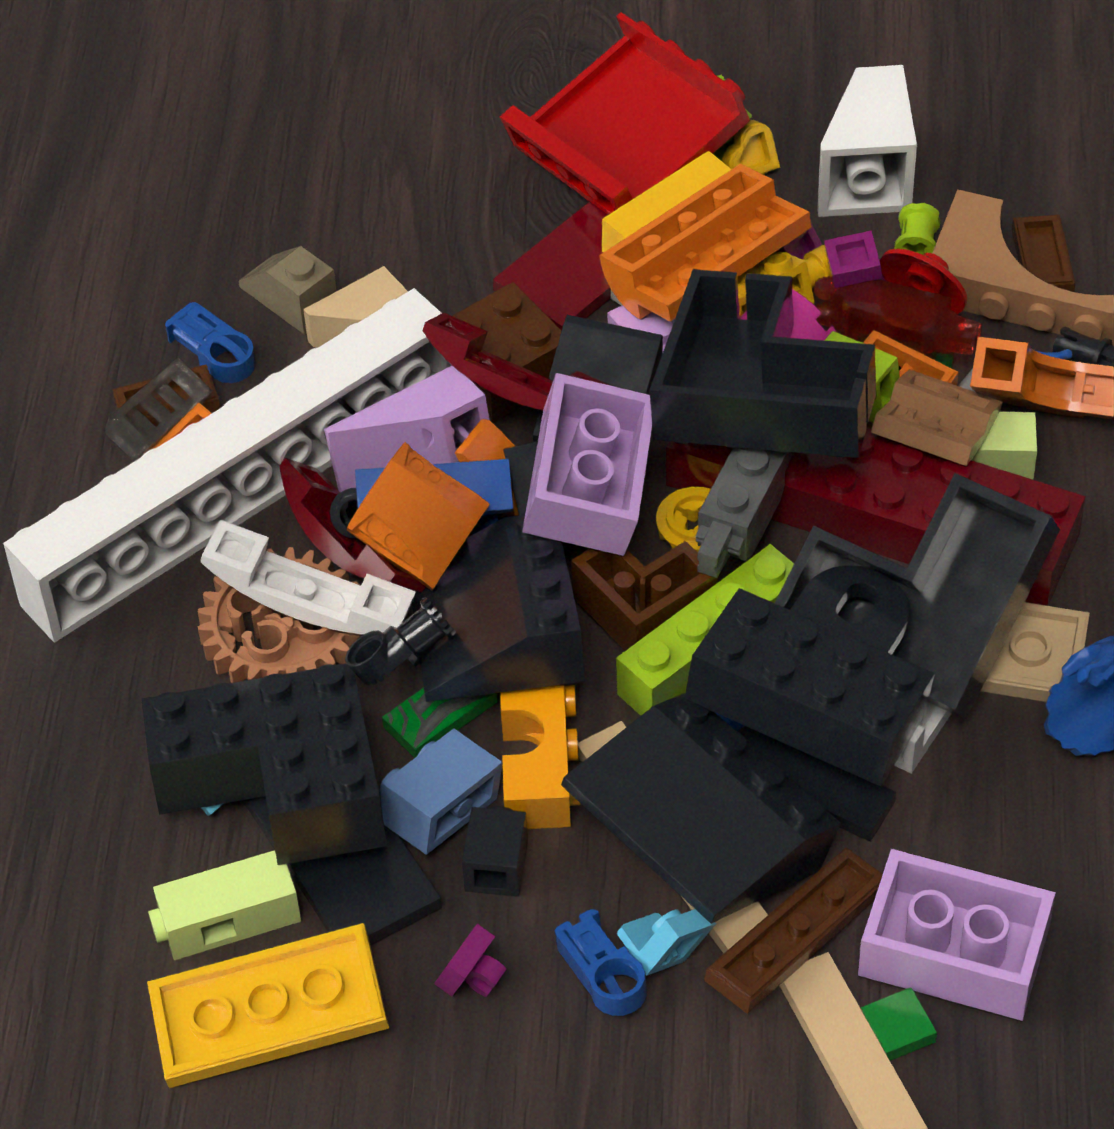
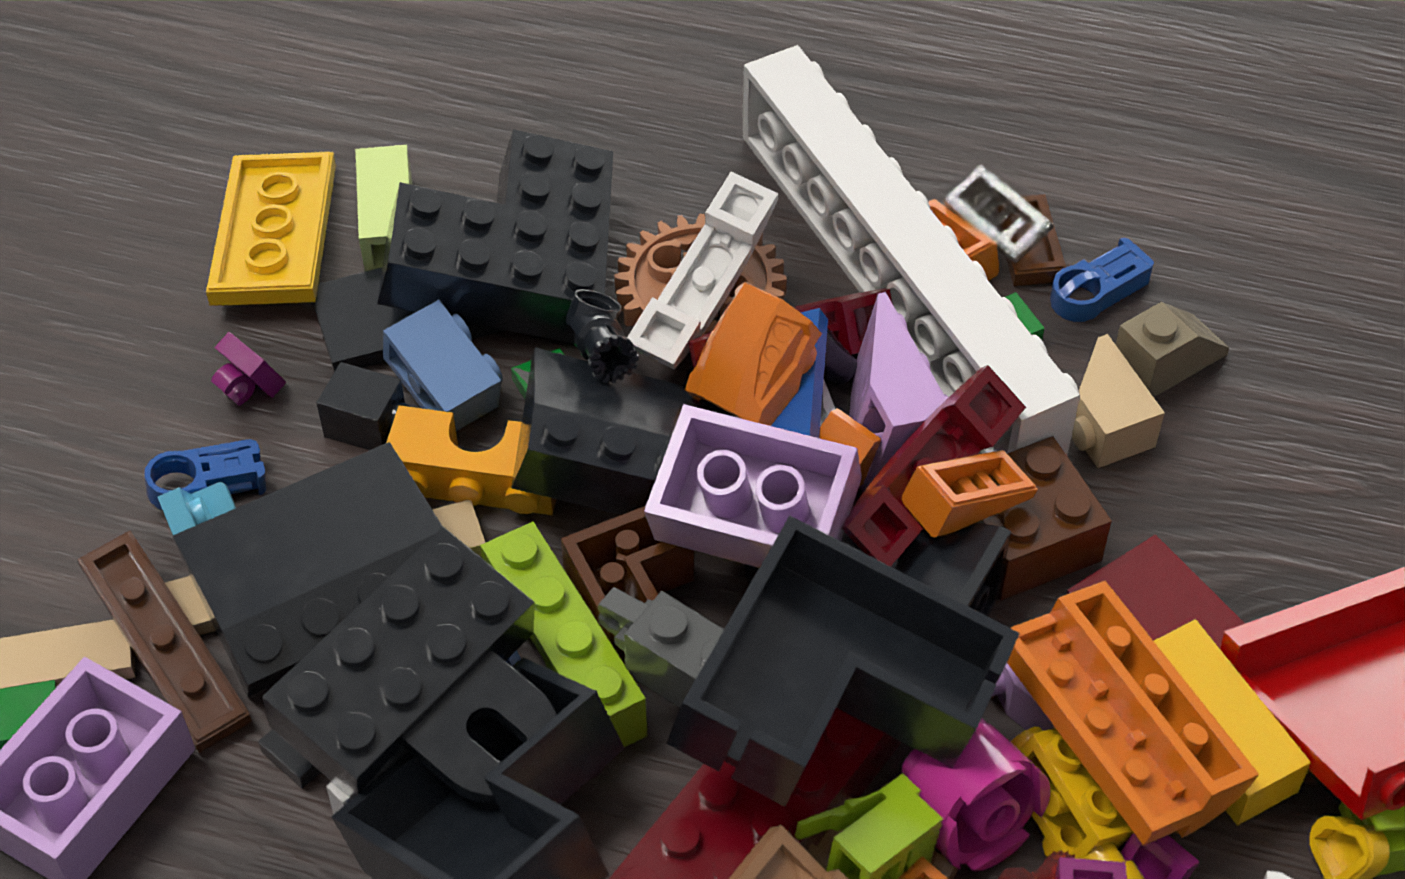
camera: 100 degrees right, 0 degrees up
(539, 348) = (961, 493): none -> orange slope

